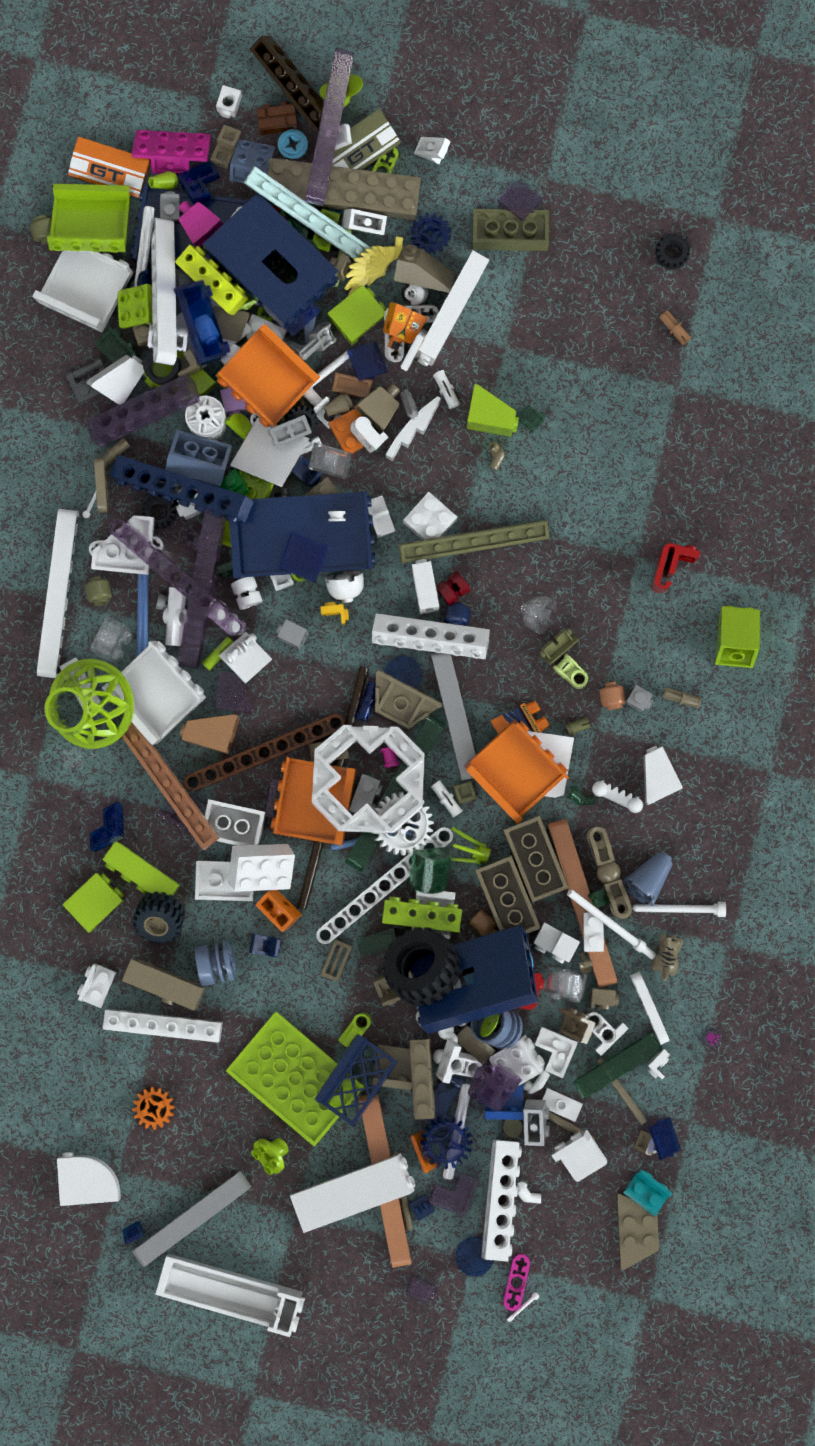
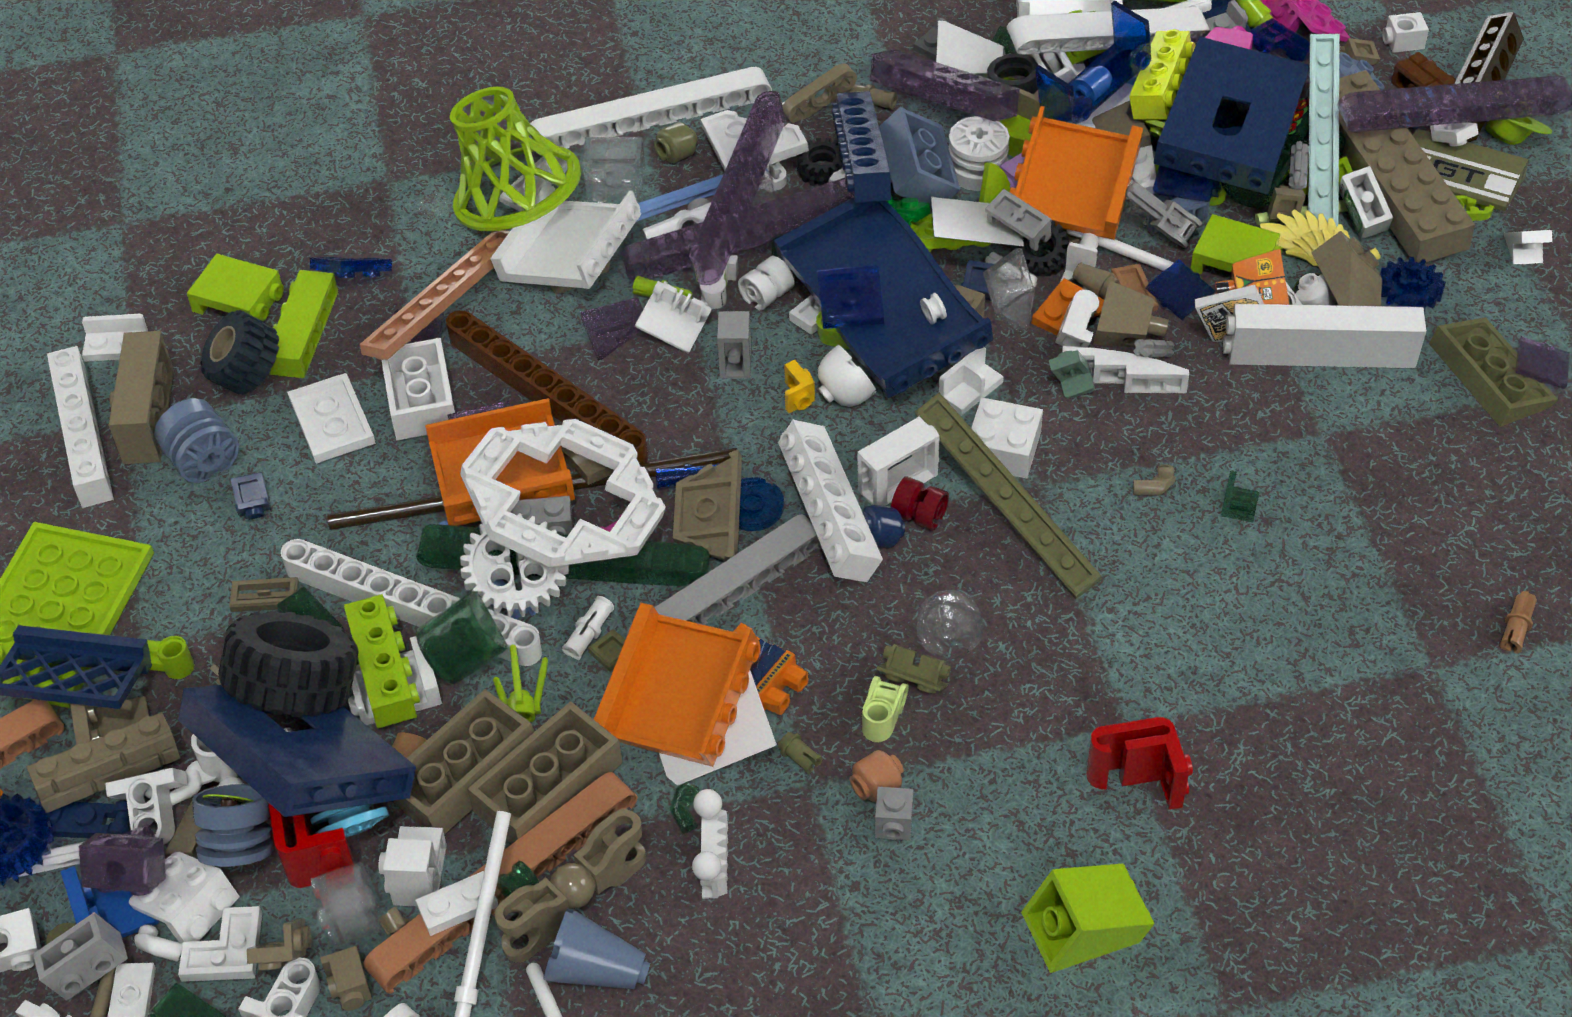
camera: 65 degrees right, 35 degrees down
(212, 732) = (544, 314): medium nougat slope -> none
(261, 867) = (365, 429): white brick -> none
(278, 910) = (312, 486): orange brick -> none
(323, 245) = (1298, 166): none -> light grey axle
(404, 458) = (1073, 373): none -> sand green bracket
(451, 400) = (1207, 387): white pin -> none
(491, 414) = (1205, 435): lime slope -> none
(659, 776) = (778, 900): white slope -> none
(682, 697) = (934, 883): dark tan axle -> none

